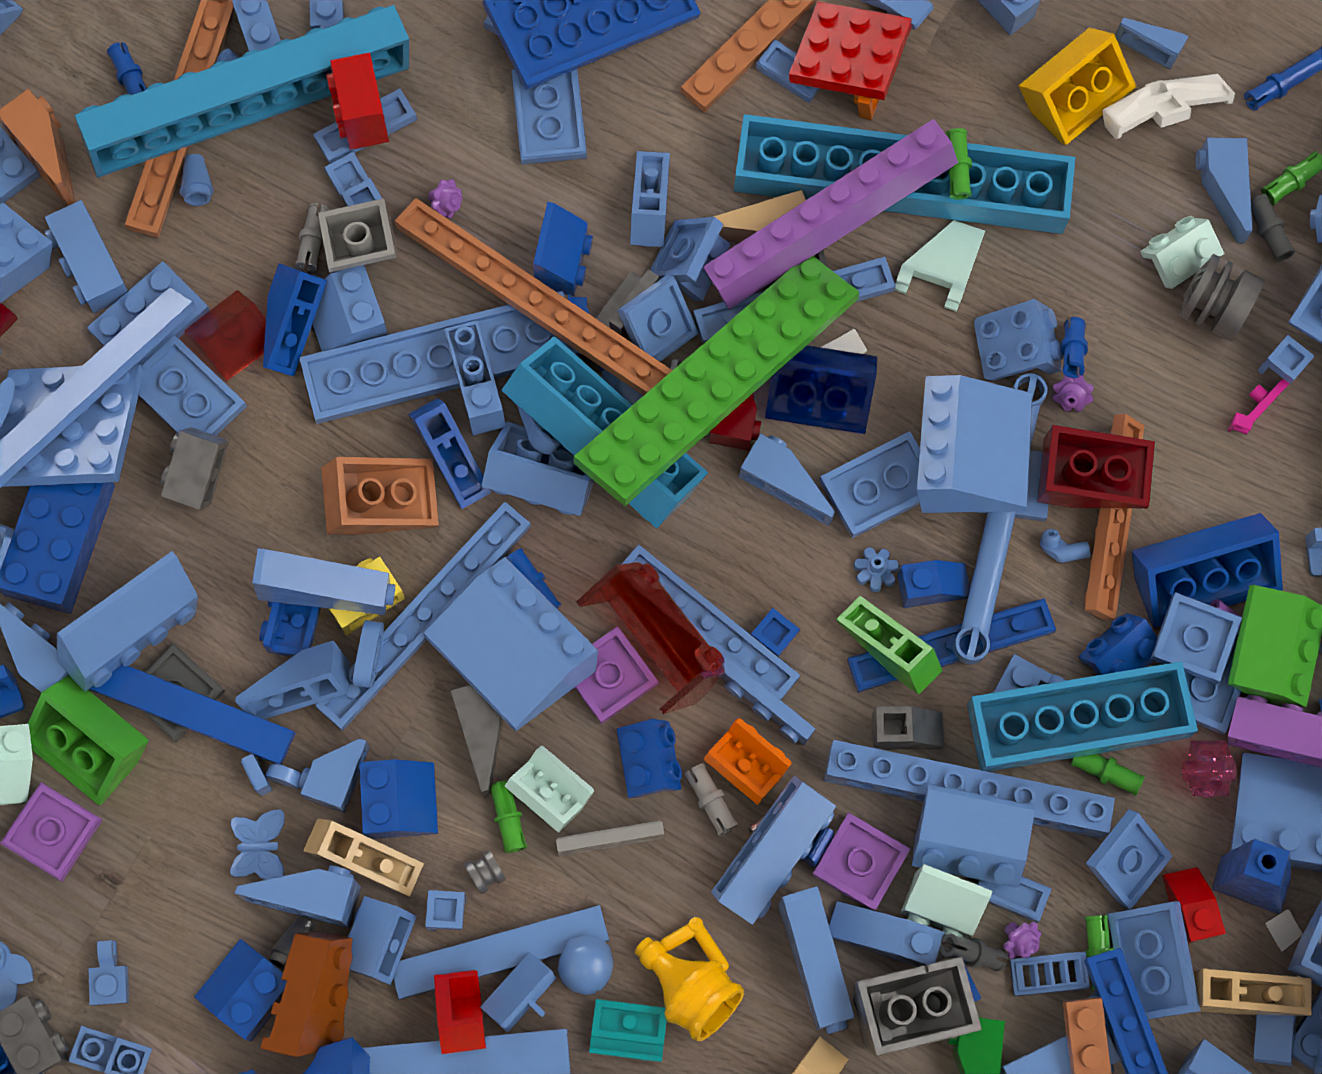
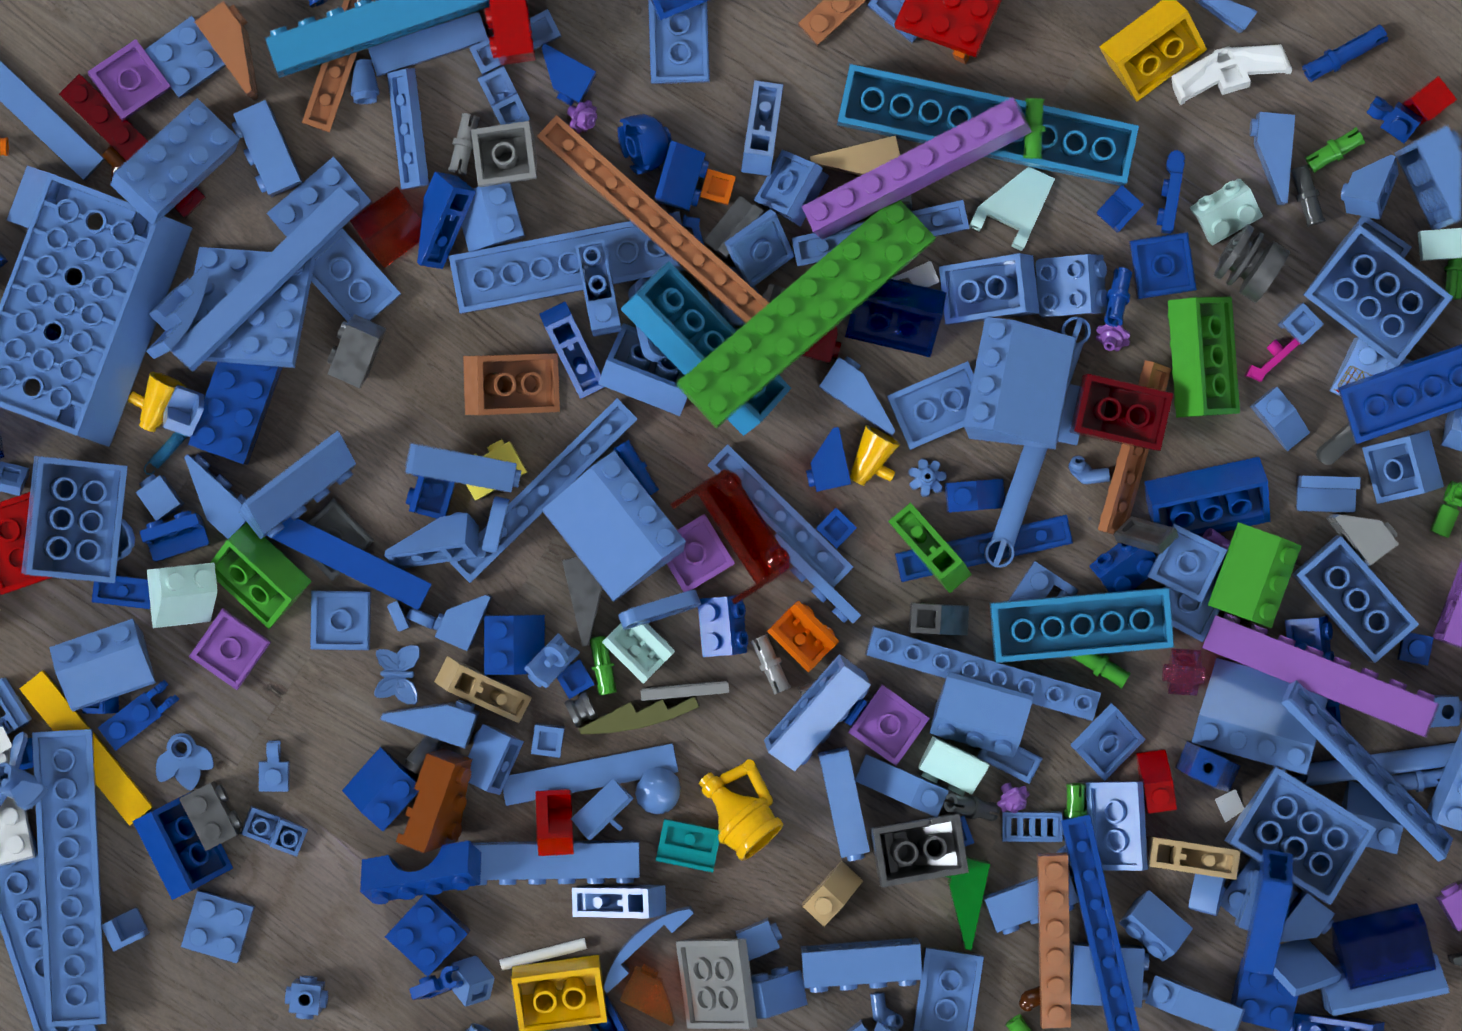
camera: 10 degrees right, 15 degrees up
(186, 788) = (340, 620): none -> medium blue tile
(247, 225) = (408, 128): none -> medium blue plate
(265, 137) = (428, 44): none -> medium blue tile
(426, 155) = (567, 76): none -> blue slope
(443, 813) = (551, 662): none -> medium blue hips
(474, 835) = (575, 679): none -> blue plate
(515, 218) = (644, 141): none -> blue cylinder
(542, 878) = (628, 718): none -> olive slope
(571, 739) = (659, 609): none -> medium blue beam
(604, 263) = (717, 187): none -> orange plate
(761, 560) = (829, 464): none -> blue slope
(809, 544) = (872, 454): none -> yellow piece
(923, 346) = (989, 288): none -> medium blue slope
(1063, 255) = (1119, 208): none -> blue panel
(1118, 231) = (1171, 190): none -> blue hinge
(1118, 315) = (1162, 265): none -> blue tile
(1143, 608) = (1146, 535): none -> flat silver tile
(1179, 407) = (1203, 356): none -> bright green slope
(1278, 469) = (1280, 418): none -> medium blue slope

